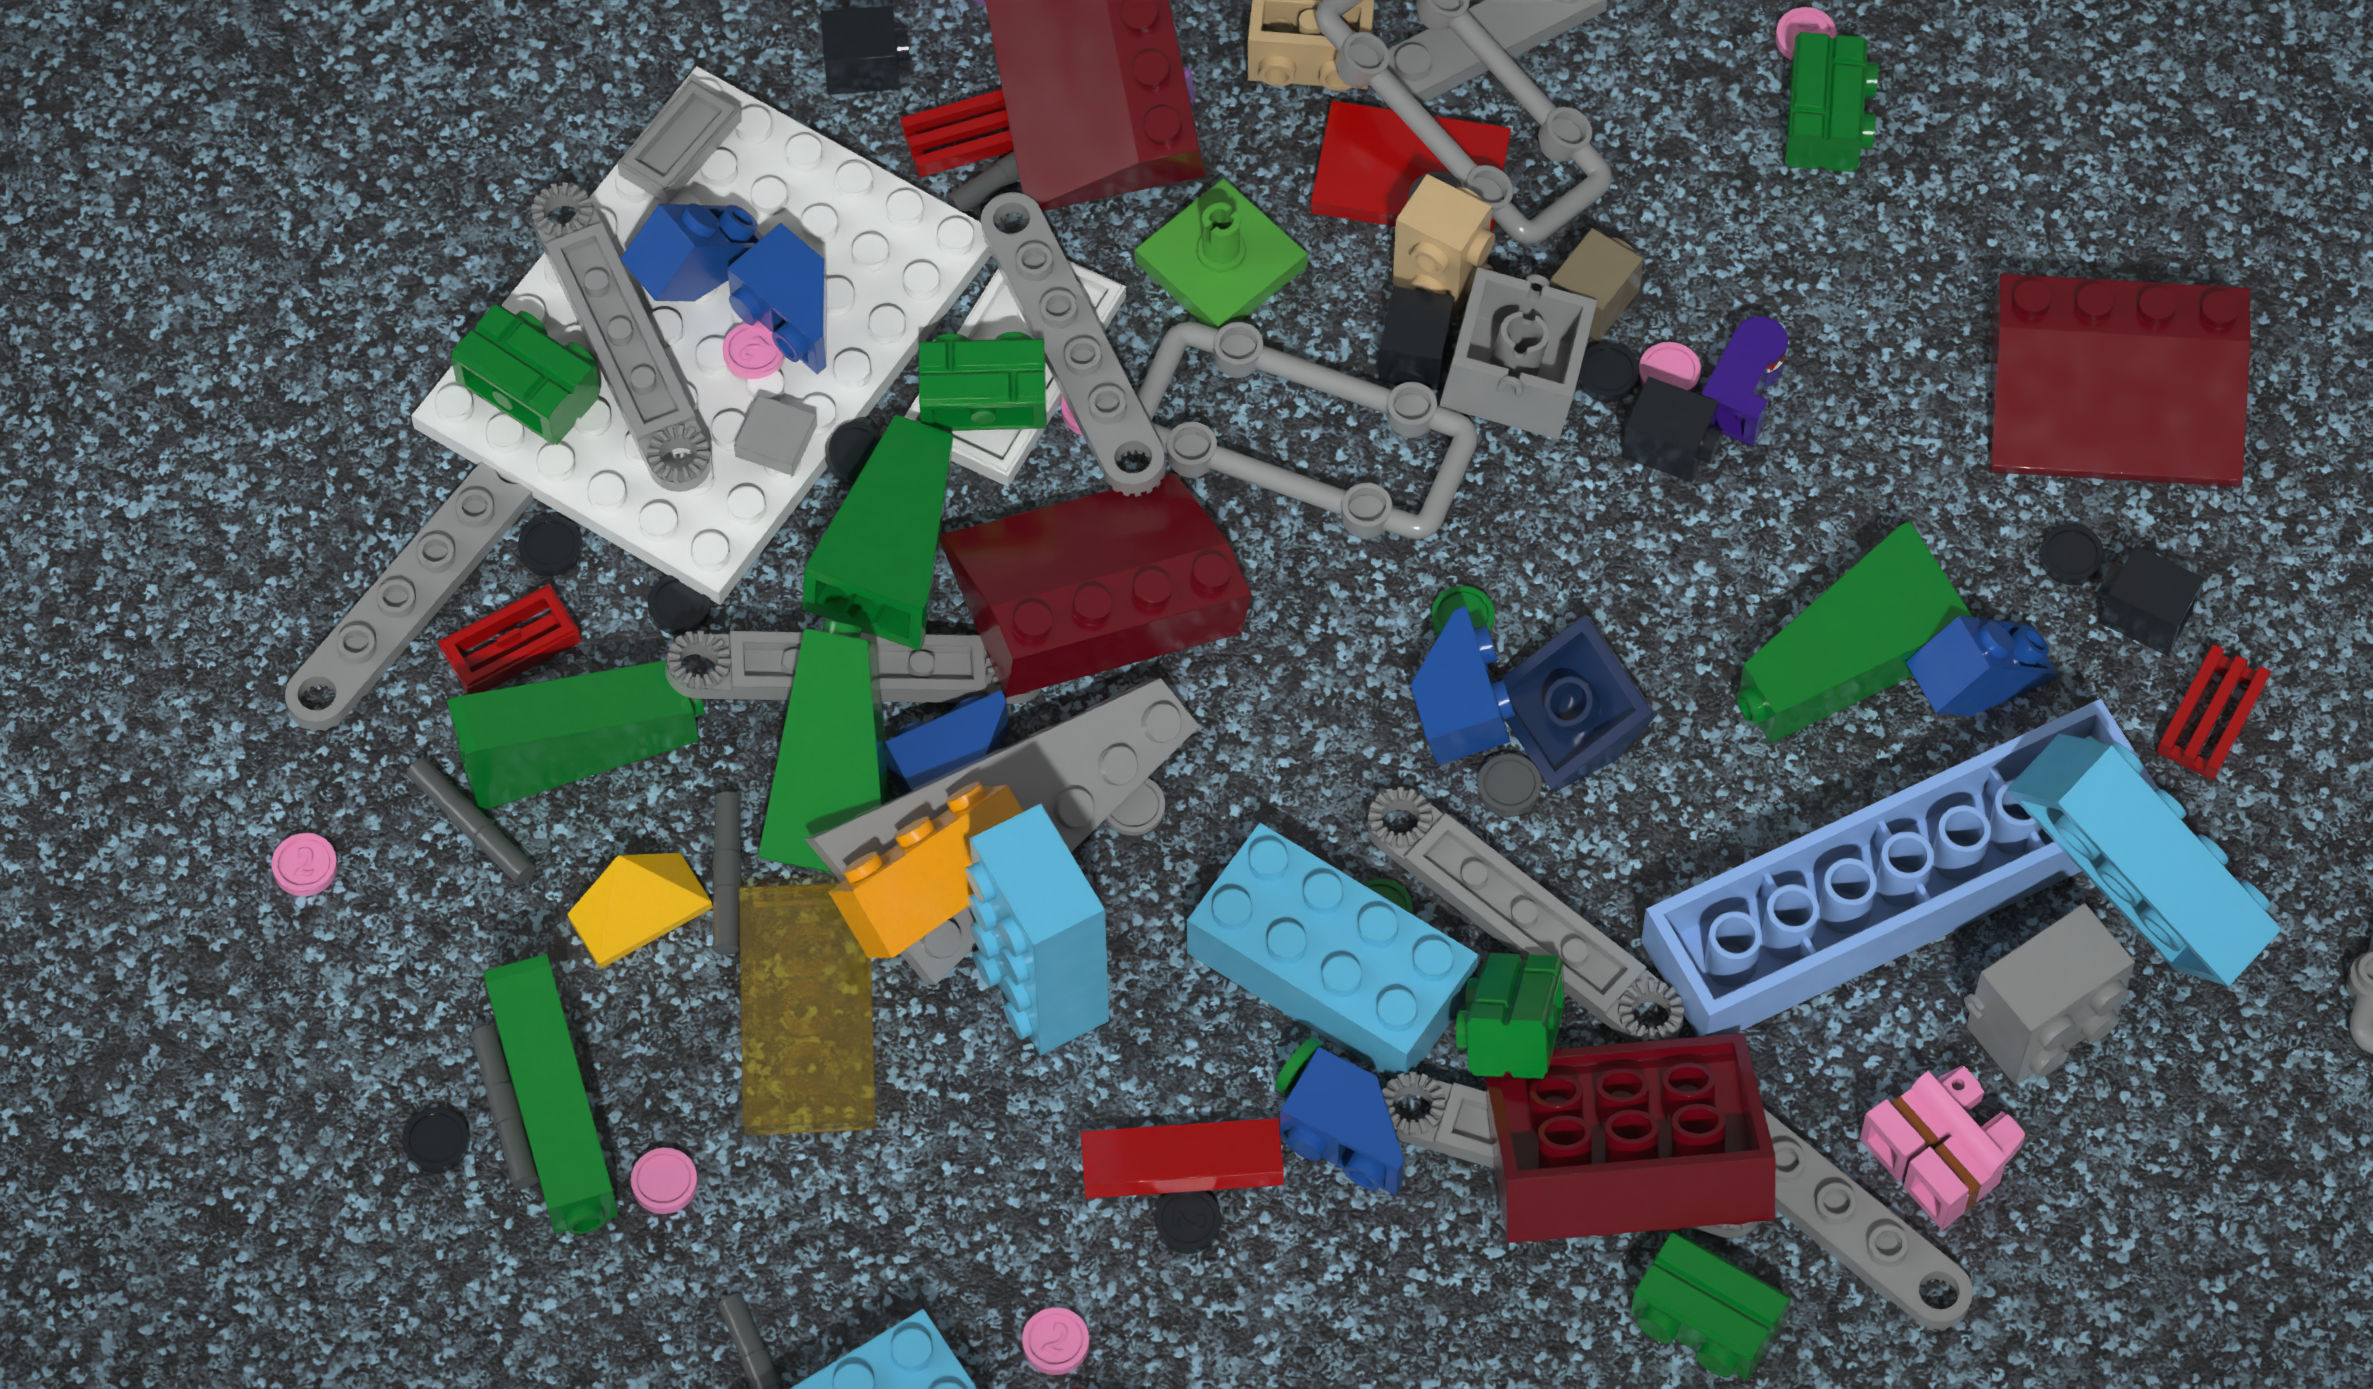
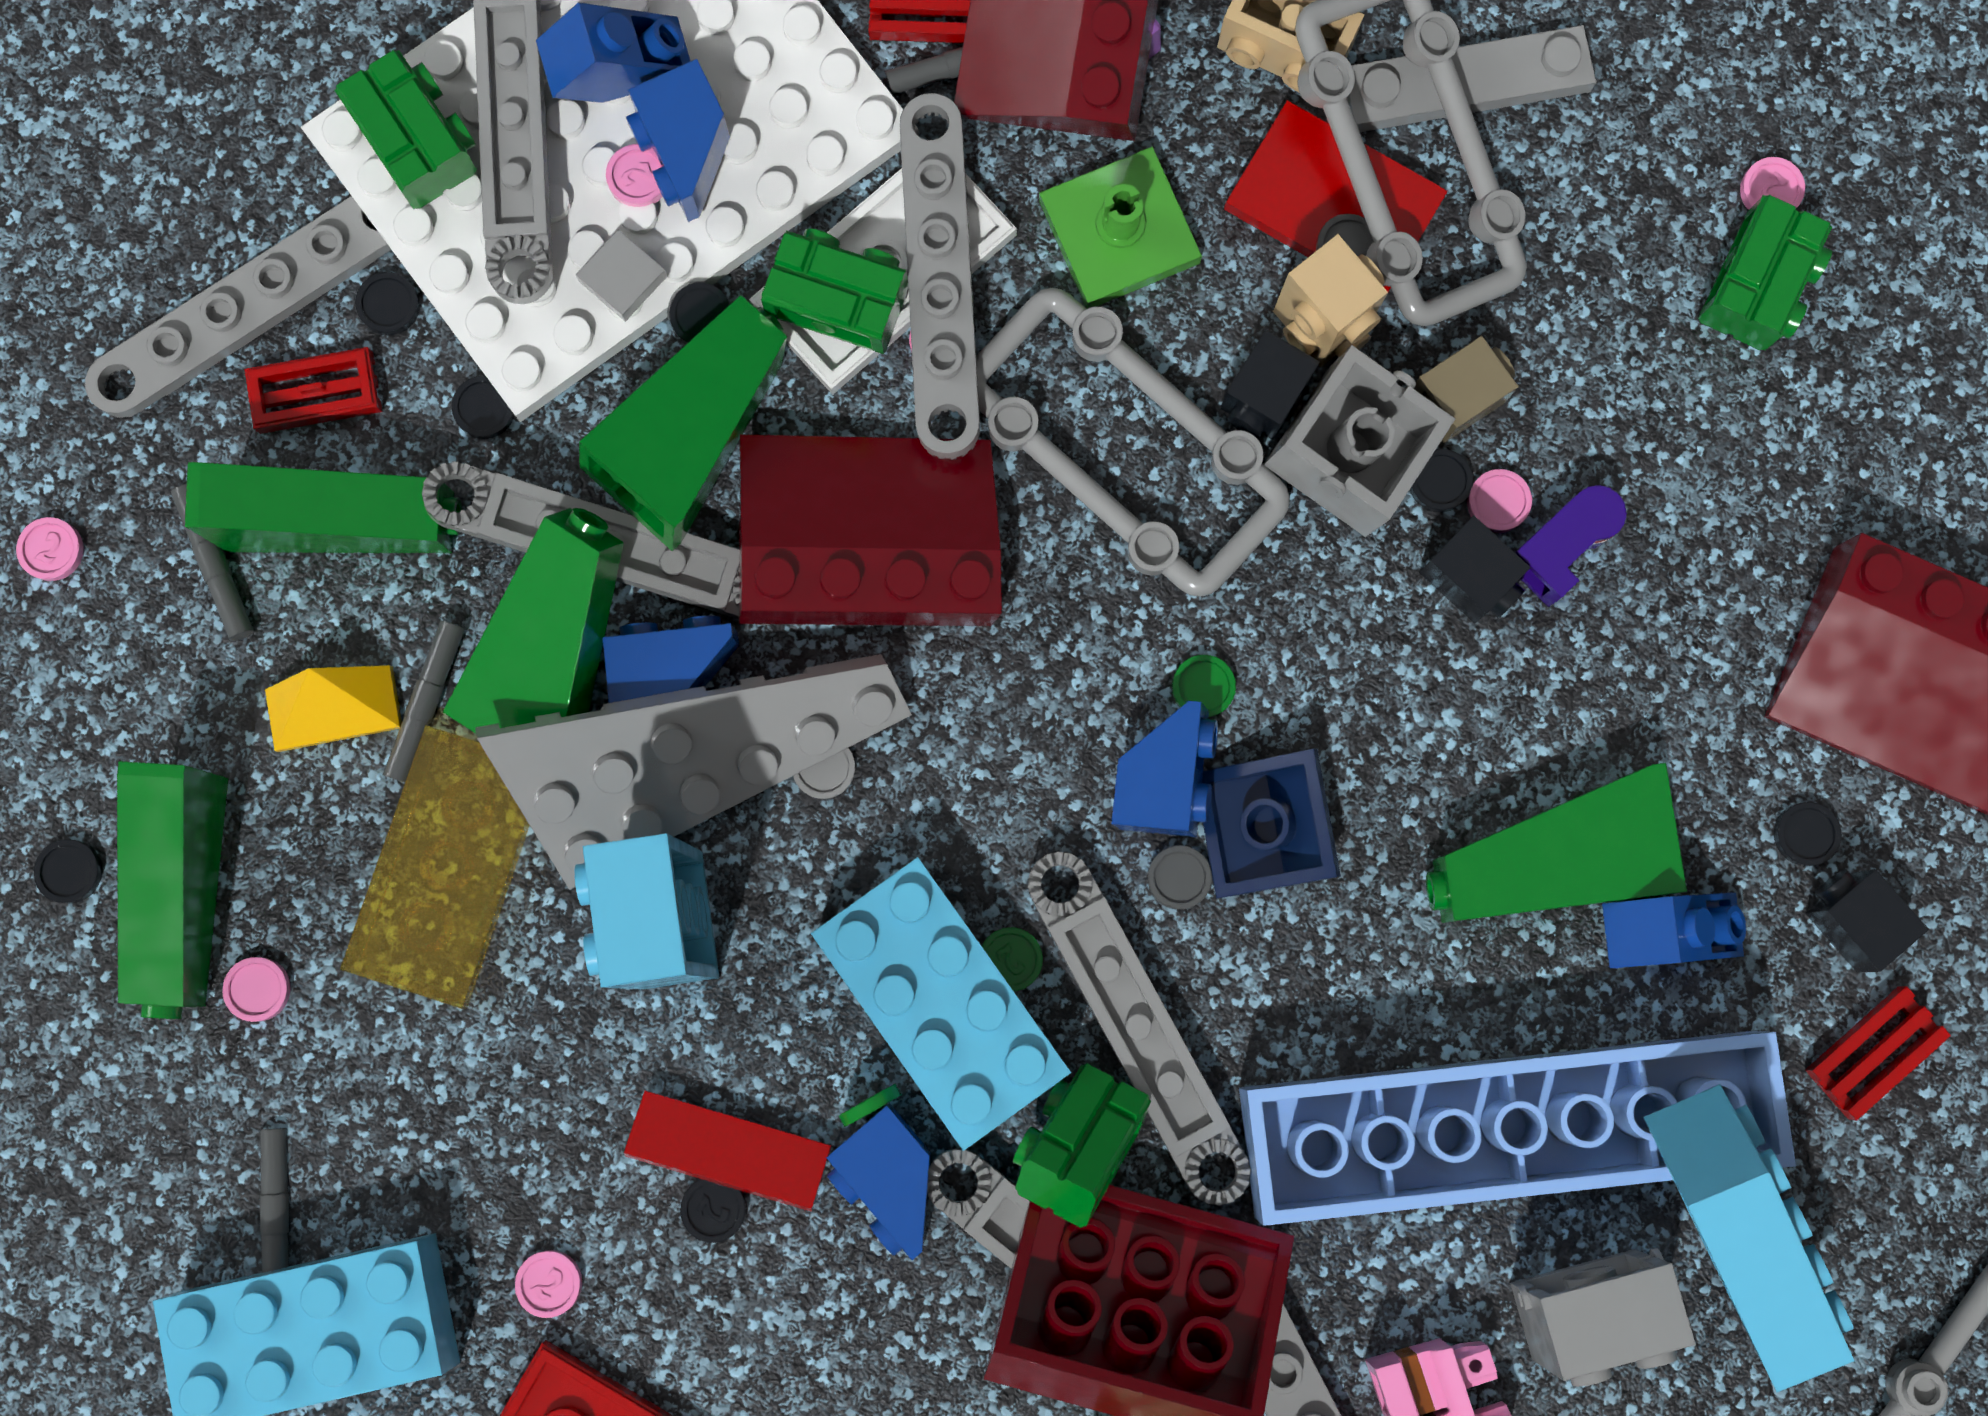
camera: 20 degrees right, 20 degrees up
(923, 878) = (614, 795): light orange brick -> none

